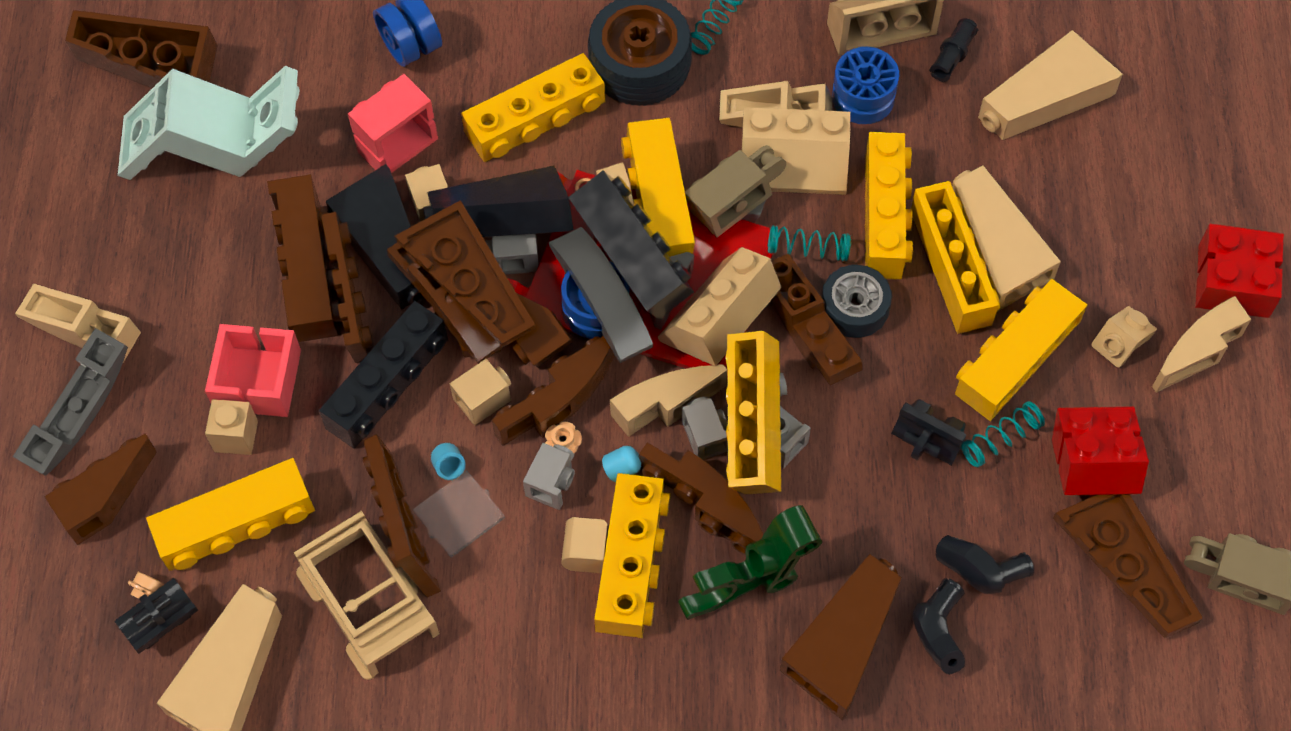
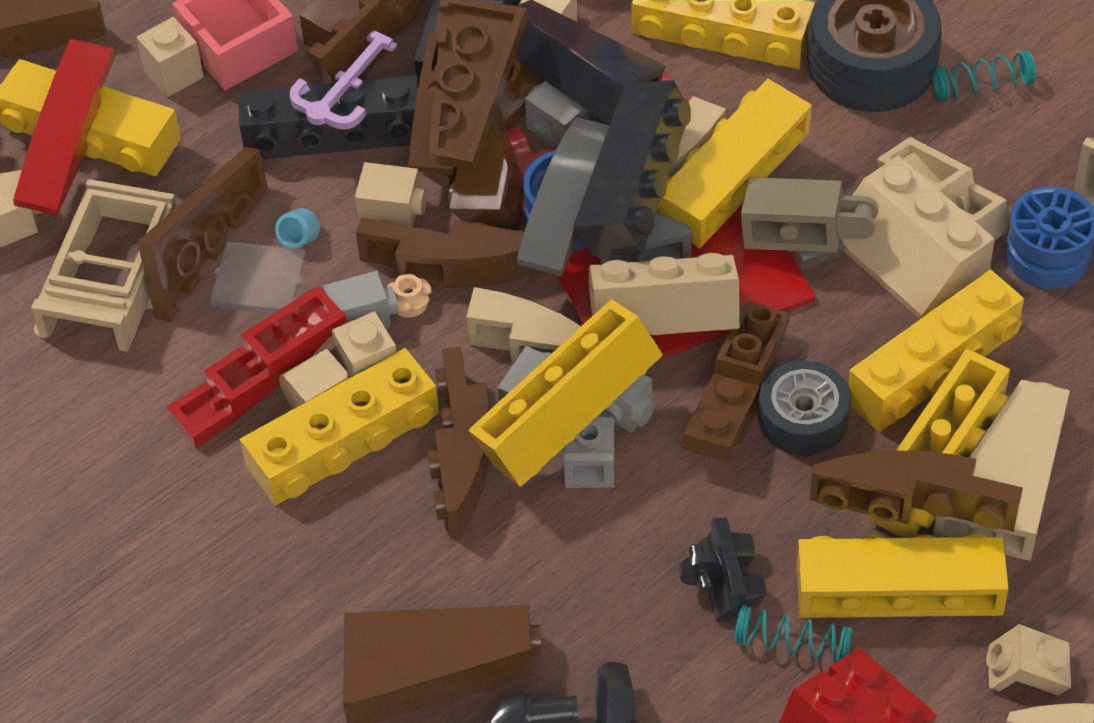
camera: 50 degrees right, 10 degrees down
(242, 534) = (62, 127): none -> red slope
(392, 376) = (319, 111): none -> lavender piece
(540, 567) = (254, 369): none -> red slope
(591, 495) = (362, 344): none -> tan brick
(622, 460) = (427, 349): medium azure piece -> none
(767, 563) = (432, 528): dark green piece -> none
(842, 249) = (798, 295): teal piece -> none
(990, 293) = (899, 480): none -> reddish brown slope

